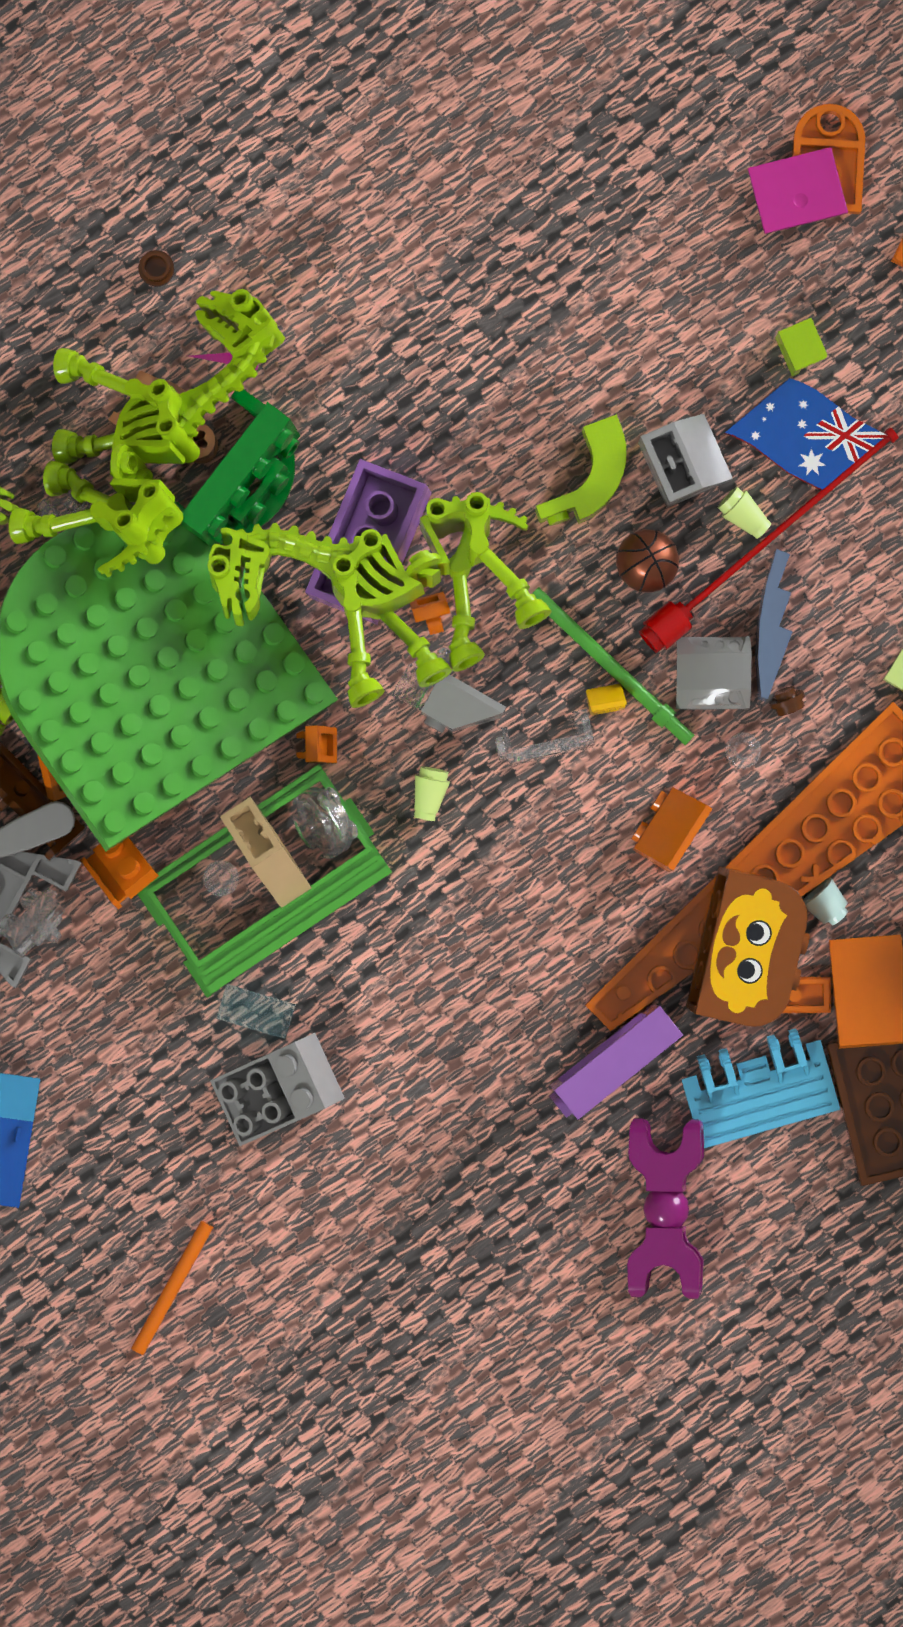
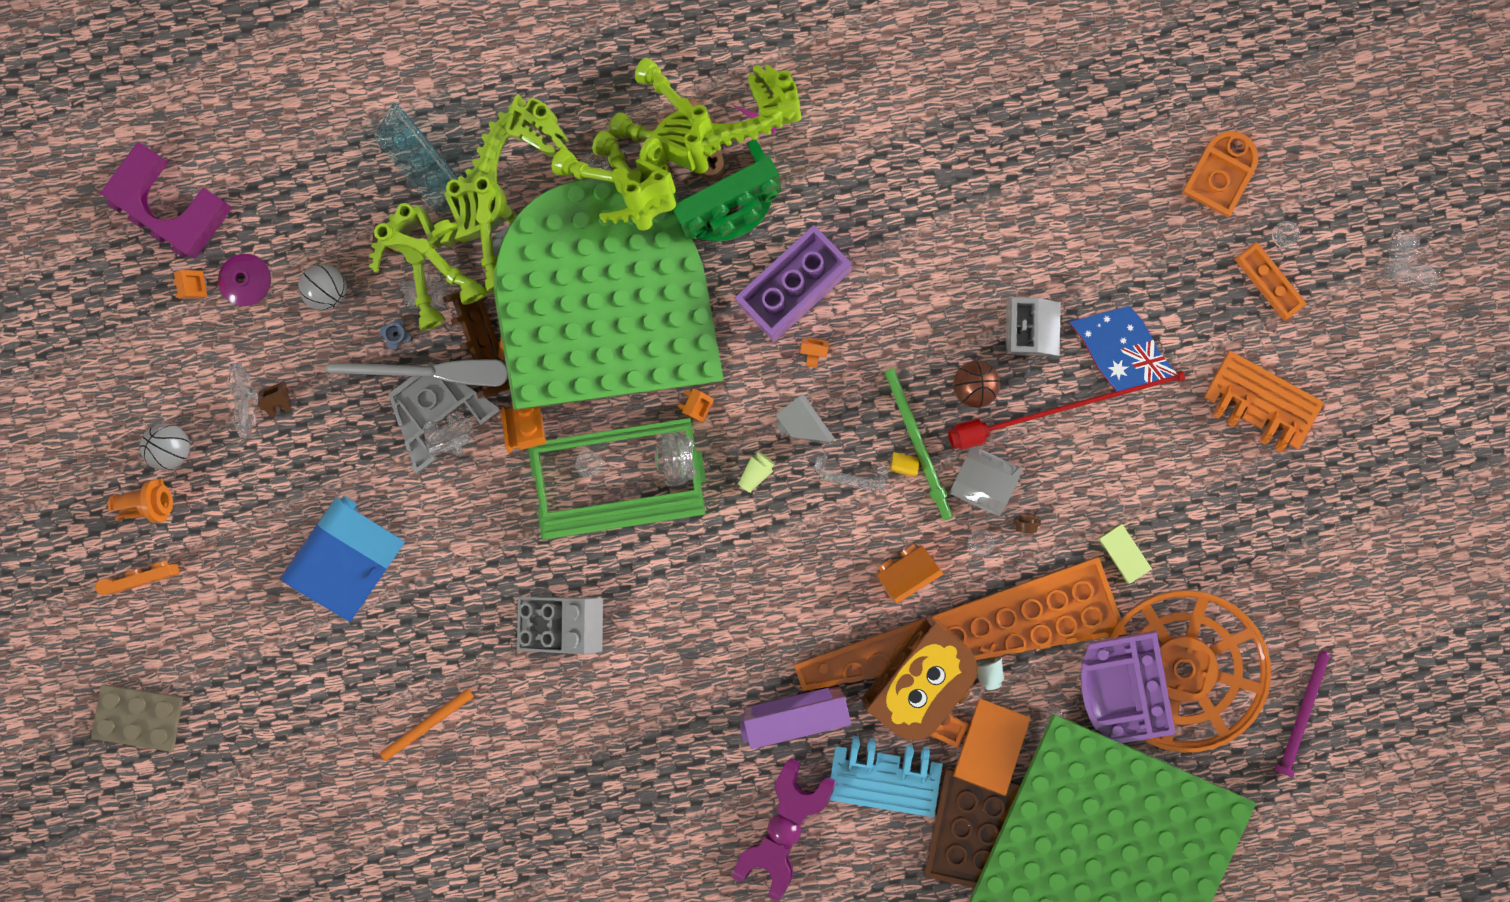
camera: 30 degrees right, 0 degrees up
(156, 268) = (737, 35): reddish brown plate -> none
(256, 1011) = (570, 564): clear light blue tile -> none
(265, 852) = (625, 461): tan window -> none
(385, 583) = (791, 319): lime animal -> none
(408, 689) = (786, 392): clear tile -> none
(608, 461) = (982, 301): lime arch -> none
(743, 512) = (1056, 381): yellowish green cone -> none
(770, 638) = (1035, 475): sand blue slope -> none
(797, 190) = (1194, 181): dark pink piece -> none
(801, 346) = (1147, 287): lime panel -> none

